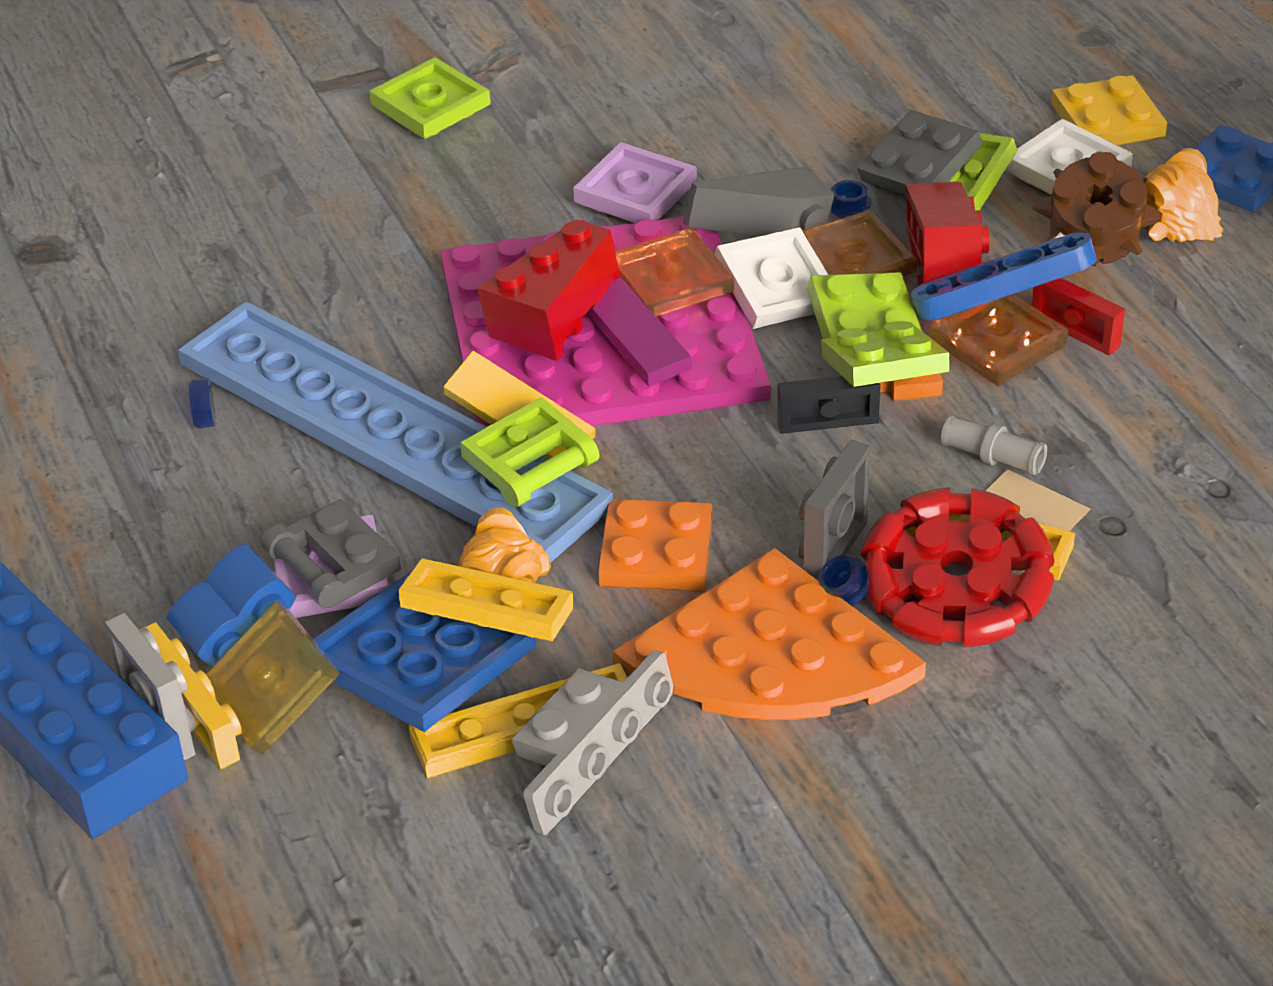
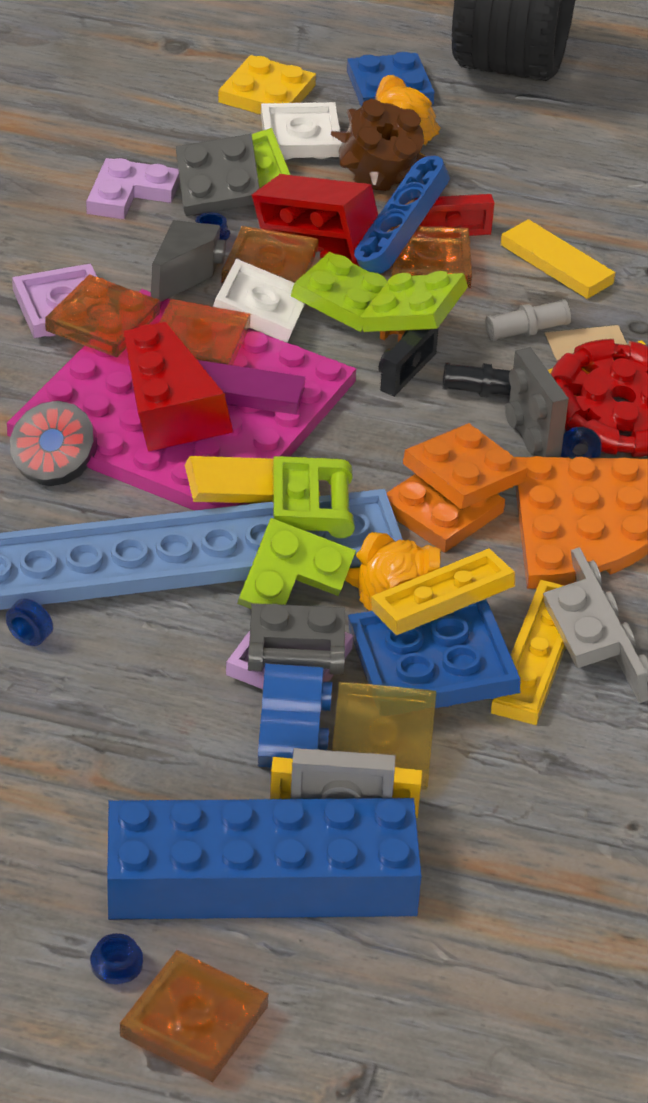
camera: 55 degrees left, 0 degrees up
(431, 487) = (290, 556): none -> lime plate
(435, 284) = (53, 443): none -> tile
(630, 205) = (99, 314): none -> clear orange plate
(699, 519) = (465, 465): none -> orange plate
(847, 120) = (124, 180): none -> lavender plate
(882, 482) = (476, 379): none -> black pin
(1126, 413) = (558, 259): none -> yellow tile

